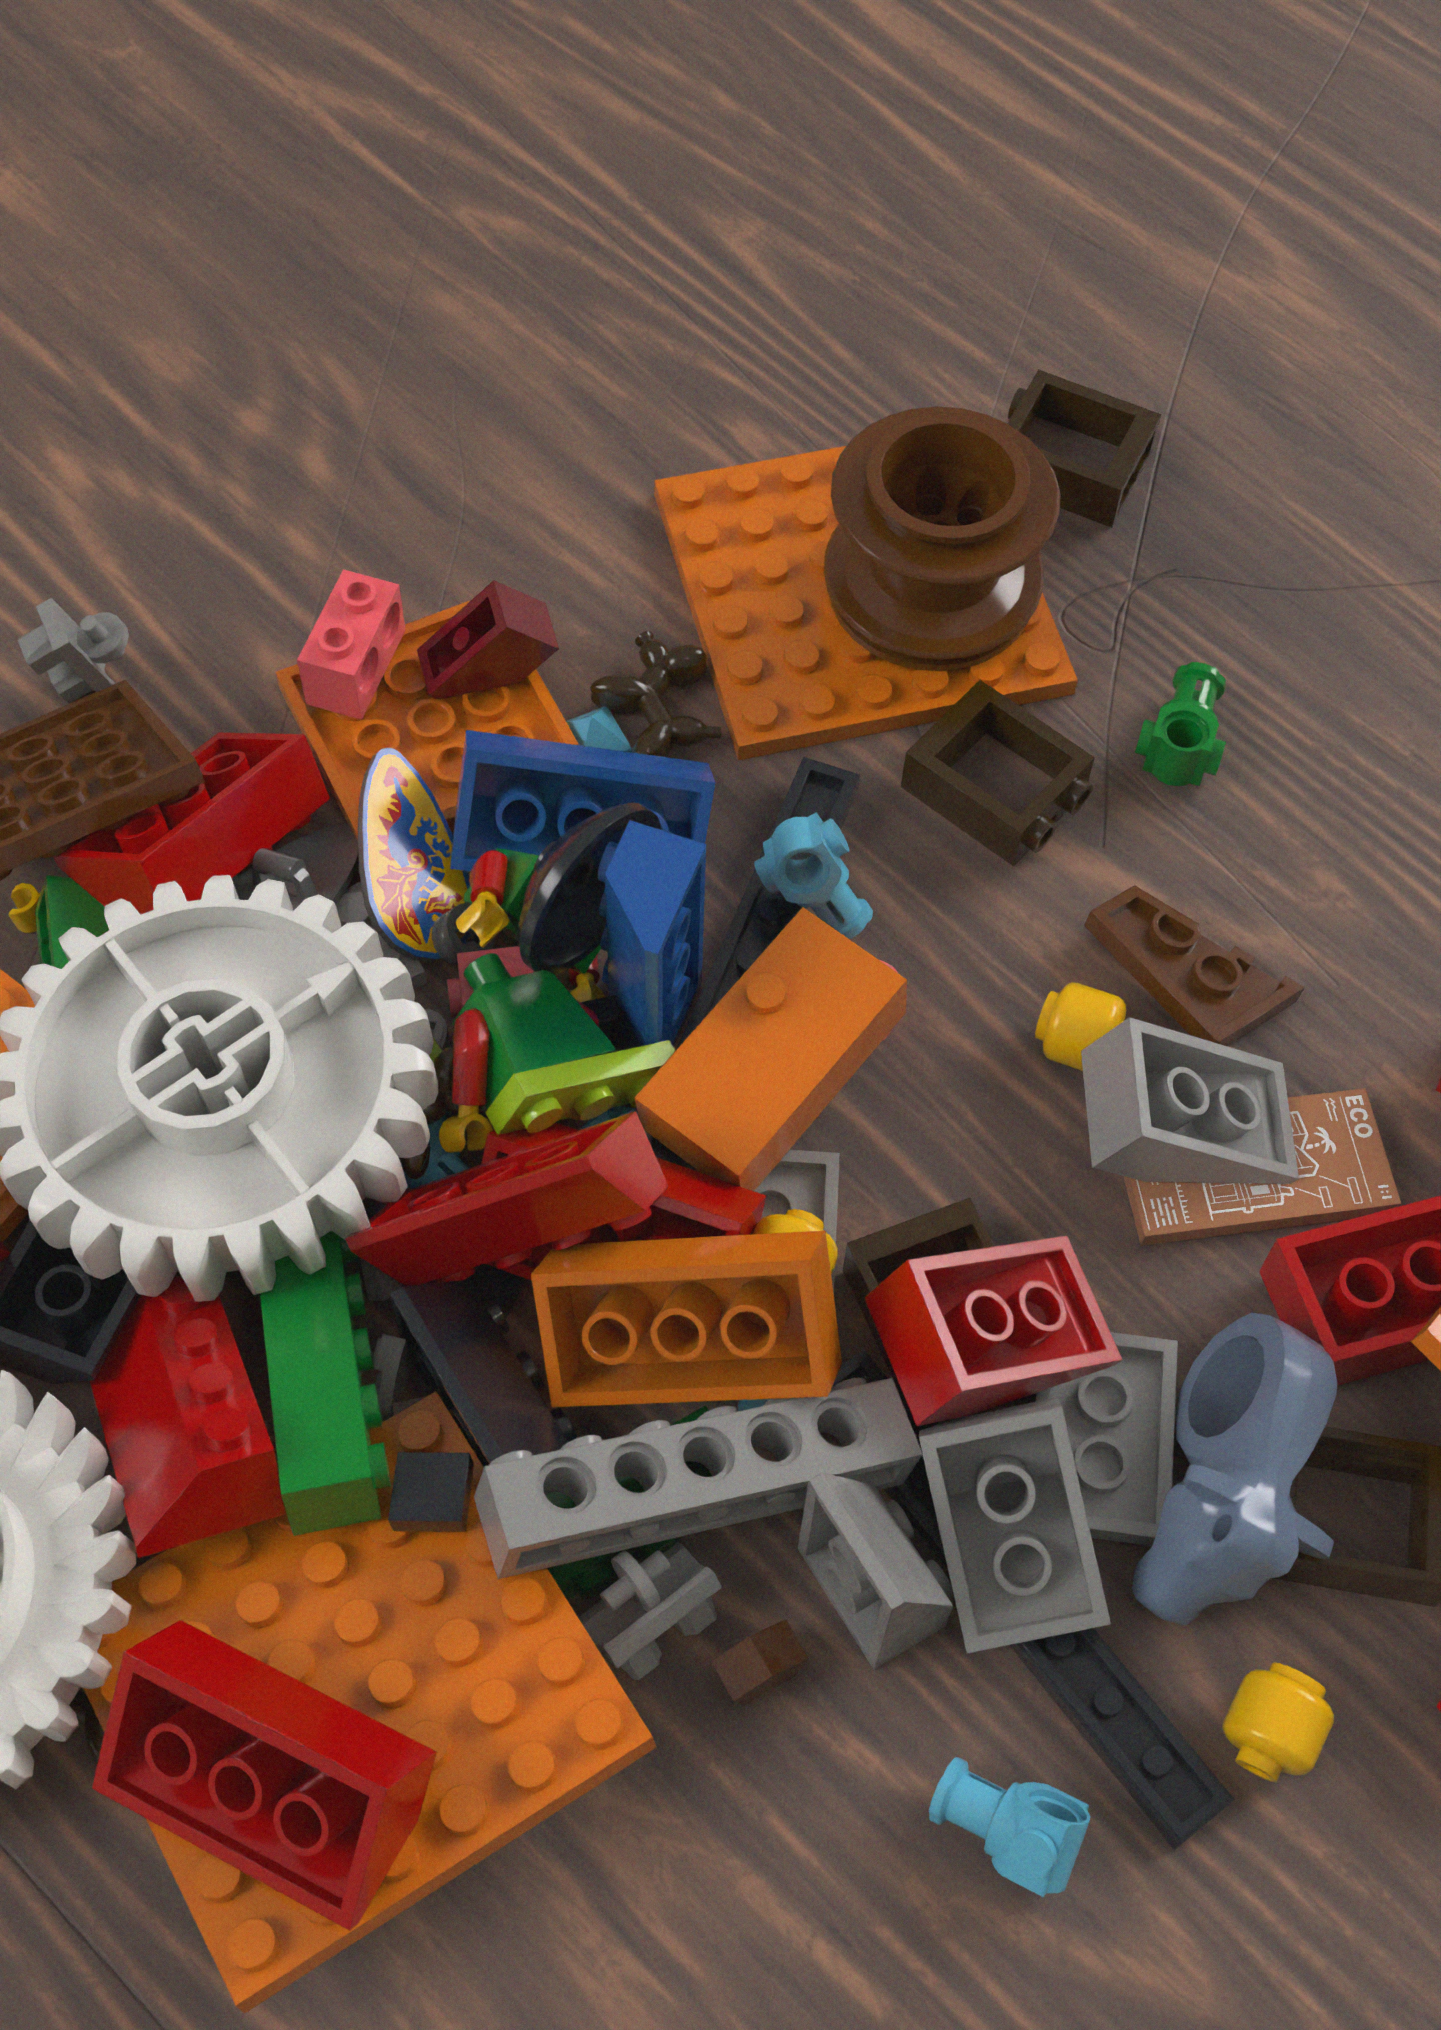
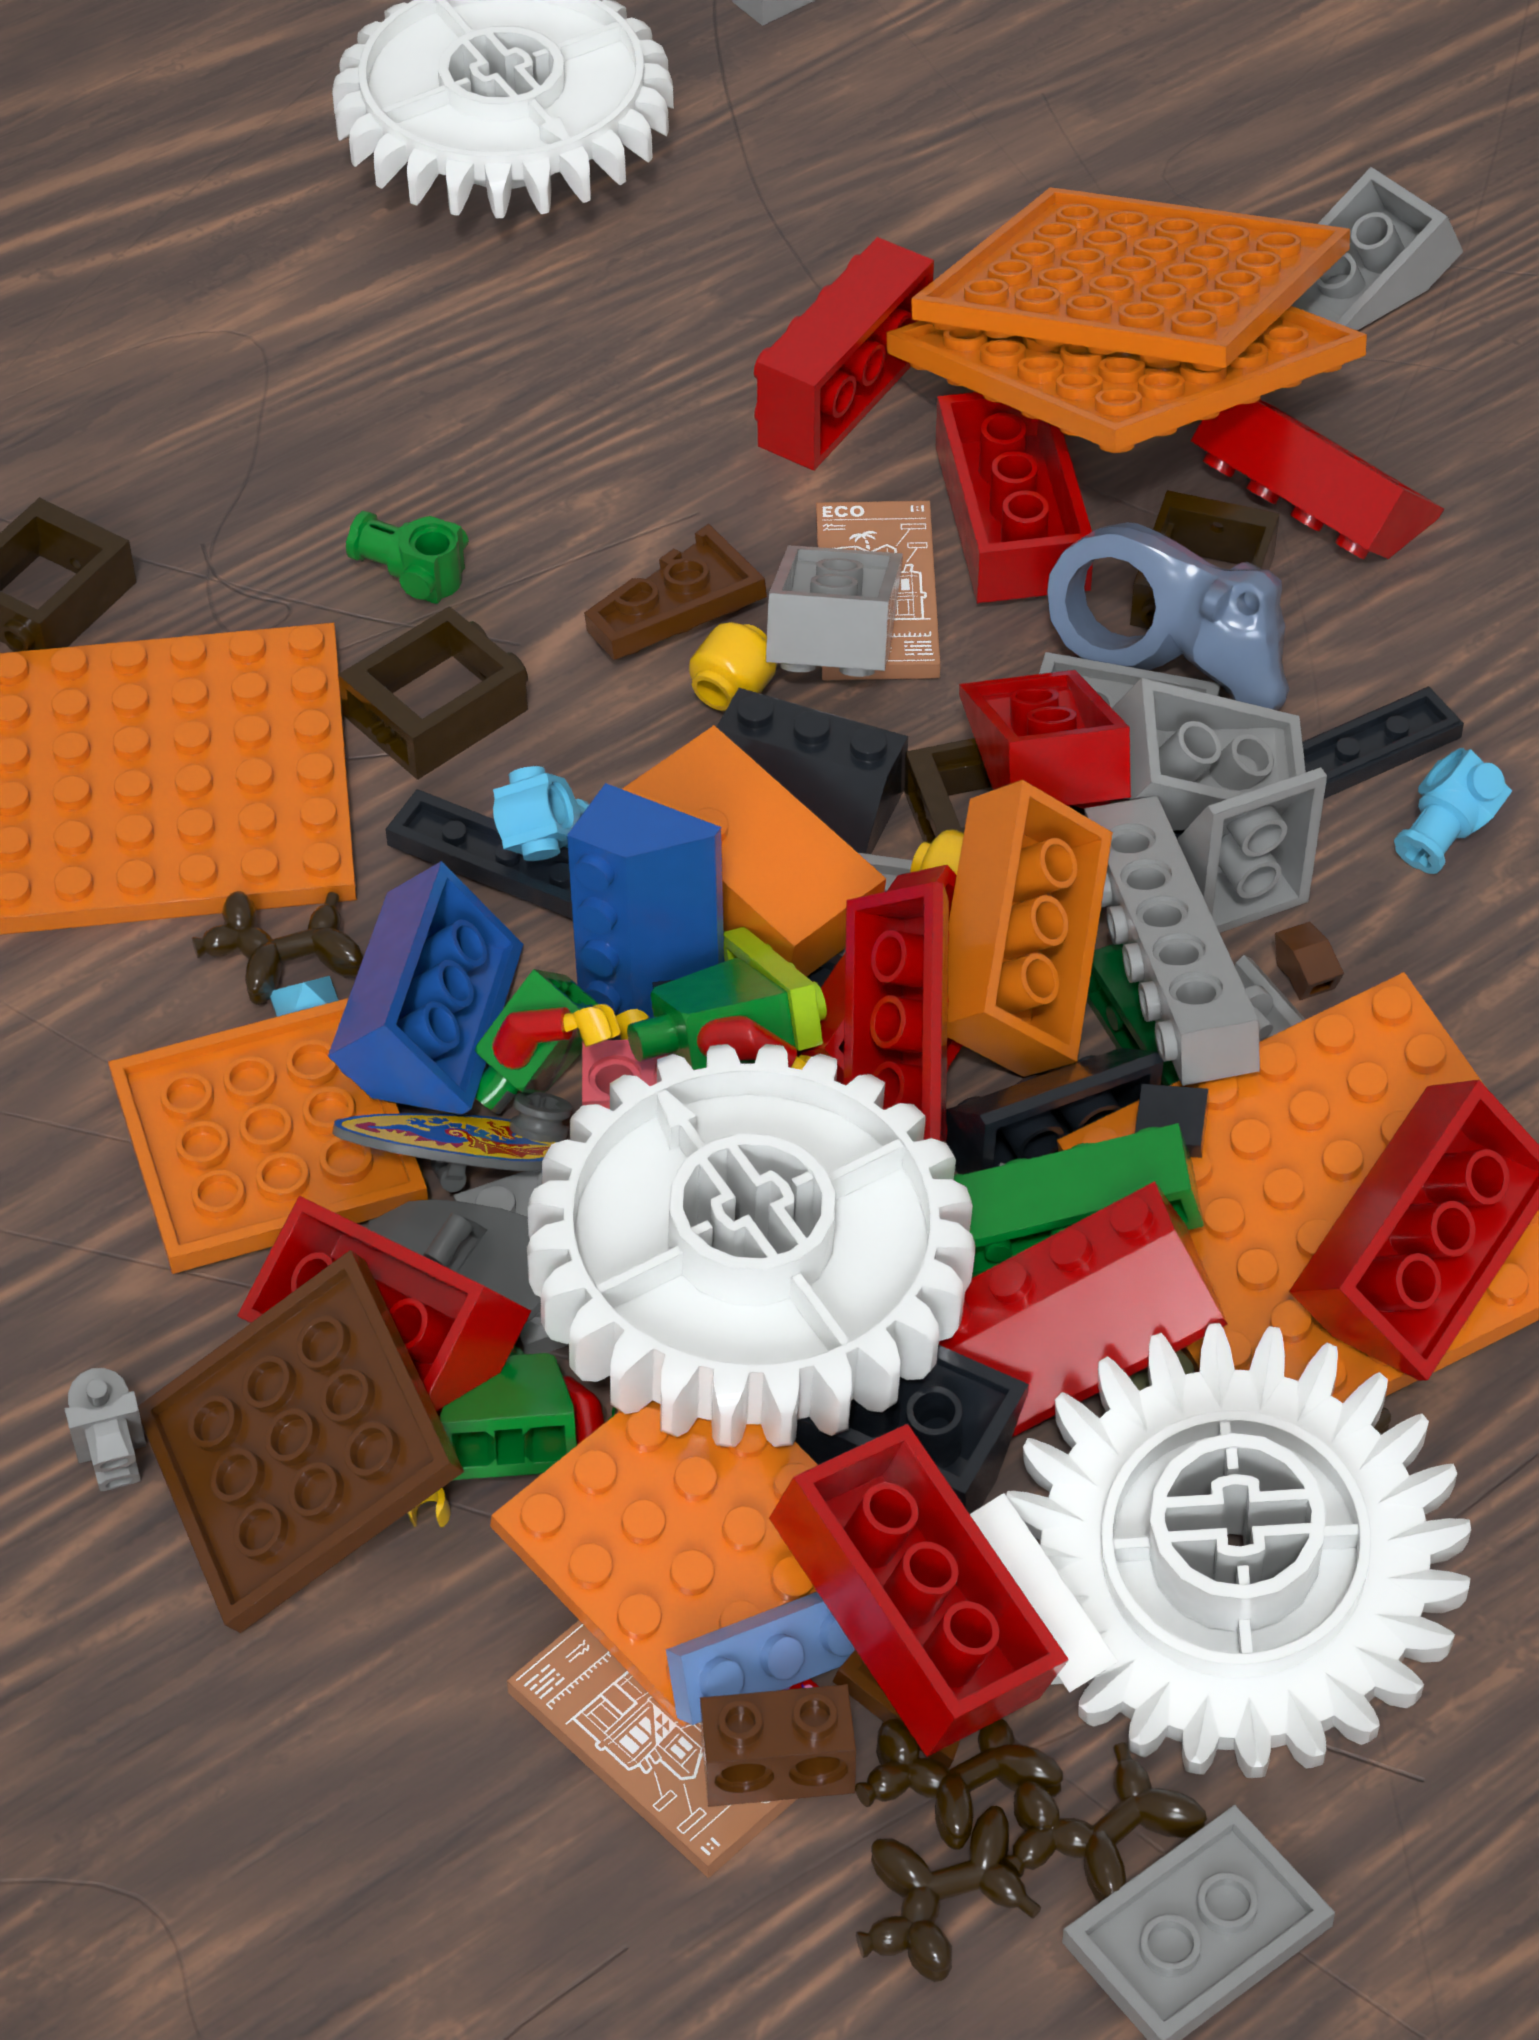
camera: 80 degrees left, 10 degrees down
(351, 644) = (175, 1161): coral brick -> none
(488, 643) = (203, 1053): dark red slope -> none
(564, 894) = (584, 928): black dish -> none
(936, 1111) = (830, 763): none -> black slope
(939, 536) = (189, 653): reddish brown wheel -> none
(1278, 1722) = (1373, 644): yellow head -> none

